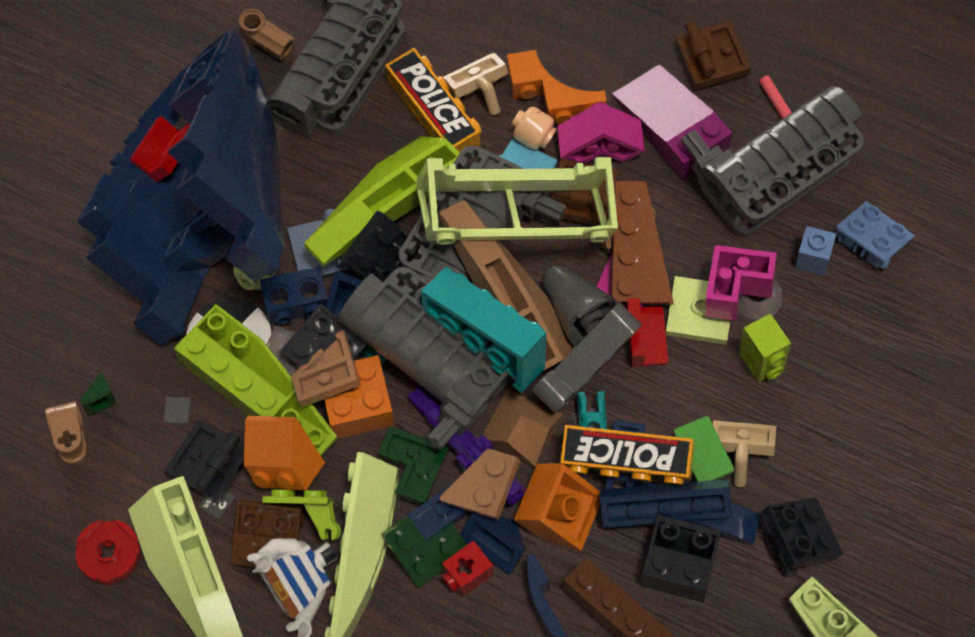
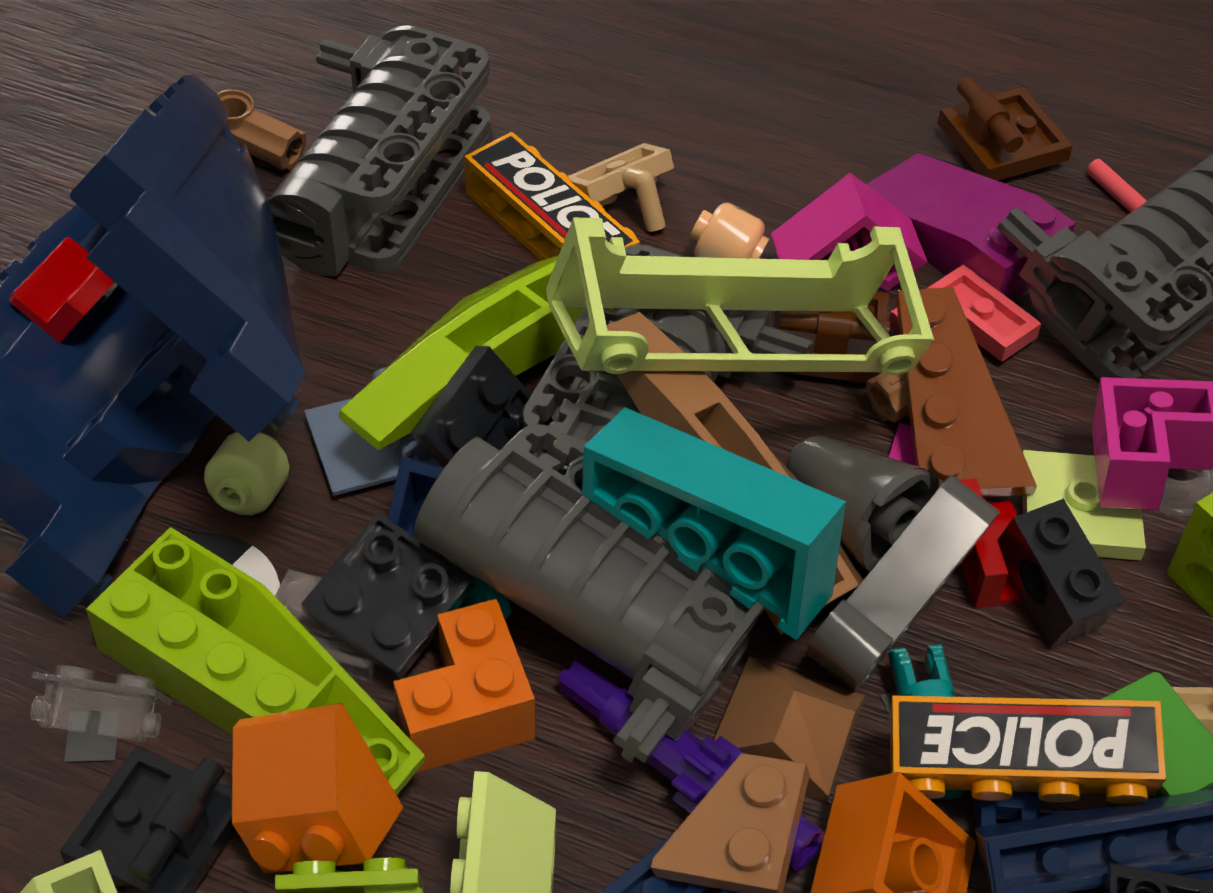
camera: 10 degrees left, 15 degrees down
(193, 396) = (73, 697): none -> clear hinge
(293, 288) = (318, 512): dark blue brick -> none
(327, 373) = (397, 633): medium nougat wing -> none
(420, 461) = (597, 795): dark green plate -> none
(531, 79) = (714, 173): orange arch -> none
(669, 182) = (993, 318): none -> coral plate
(671, 355) = (1058, 573): none -> black brick

